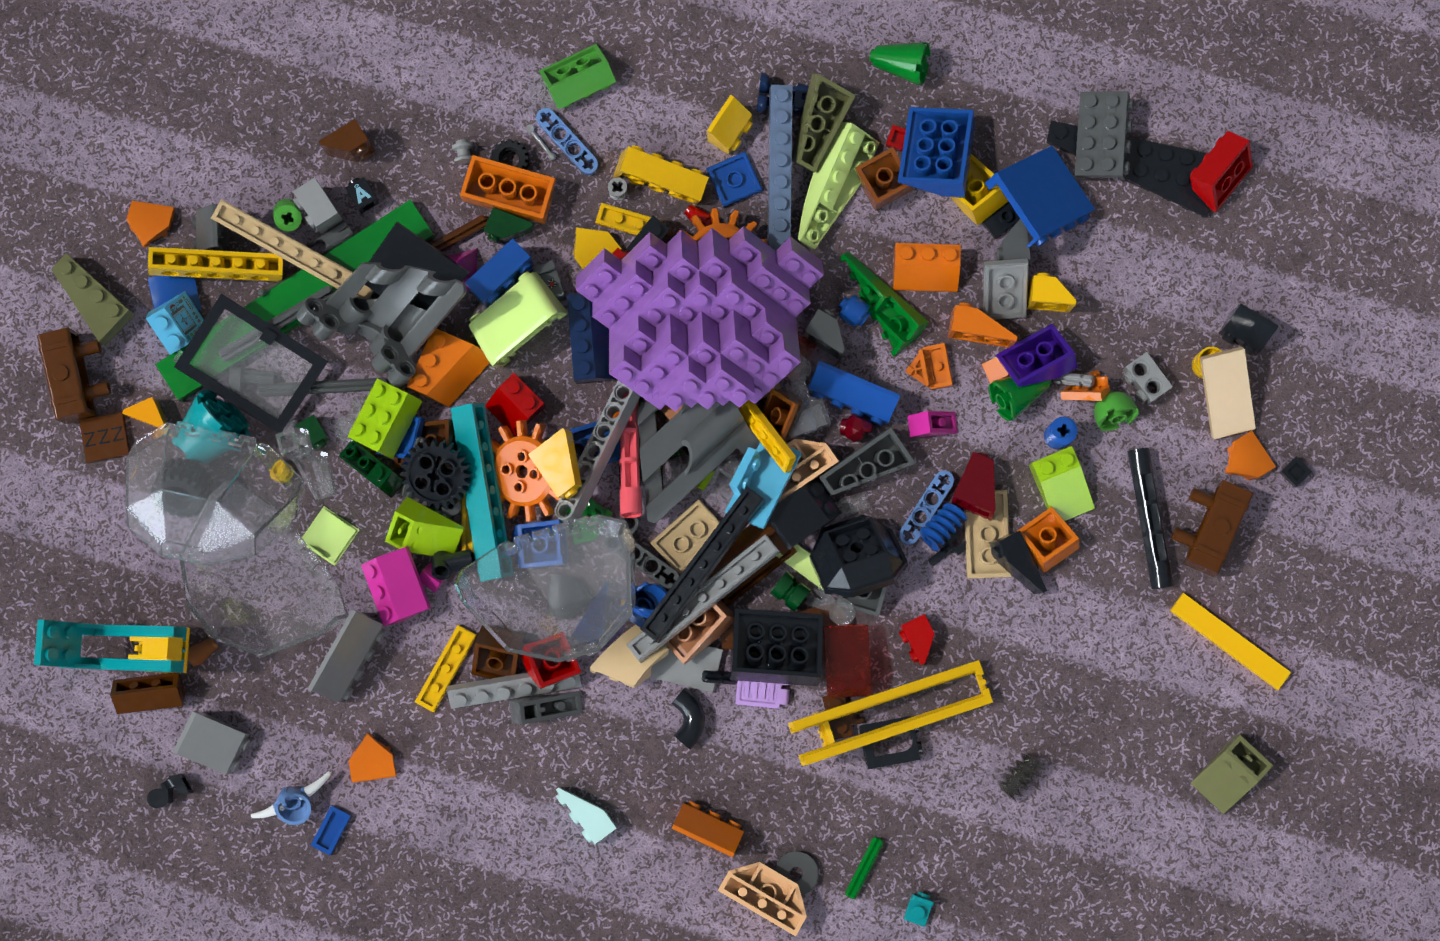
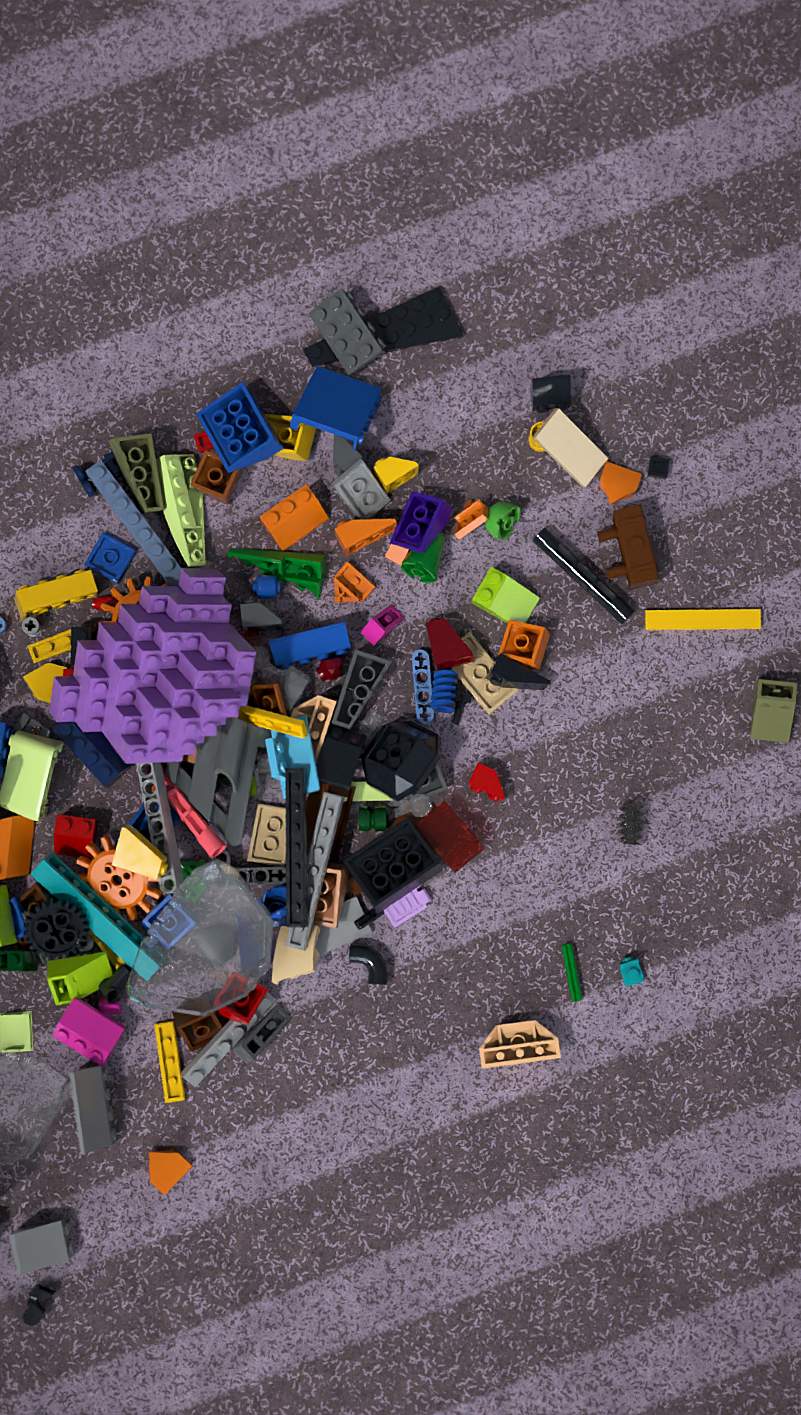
camera: 40 degrees left, 0 degrees up
(293, 803) = (133, 1243): medium blue helmet -> none
(331, 830) = (175, 1240): blue tile -> none
(592, 818) = (353, 1086): light aqua slope -> none
(708, 828) = (442, 1030): orange slope -> none
(729, 126) = (78, 522): yellow slope -> none
(805, 863) = (527, 1001): dark grey tile -> none
(832, 748) = (485, 906): yellow piece -> none
(841, 726) = (475, 878): reddish brown hinge -> none
(903, 60) = (166, 383): green cone -> none
(909, 755) = (521, 850): black panel -> none
(1001, 220) = (321, 445): black plate -> none
(1053, 437) = (478, 556): blue piece -> none
(1076, 380) = (458, 518): light grey axle -> none
(1152, 375) = (508, 475): light grey brick -> none
(1222, 170) = (448, 294): red slope -> none

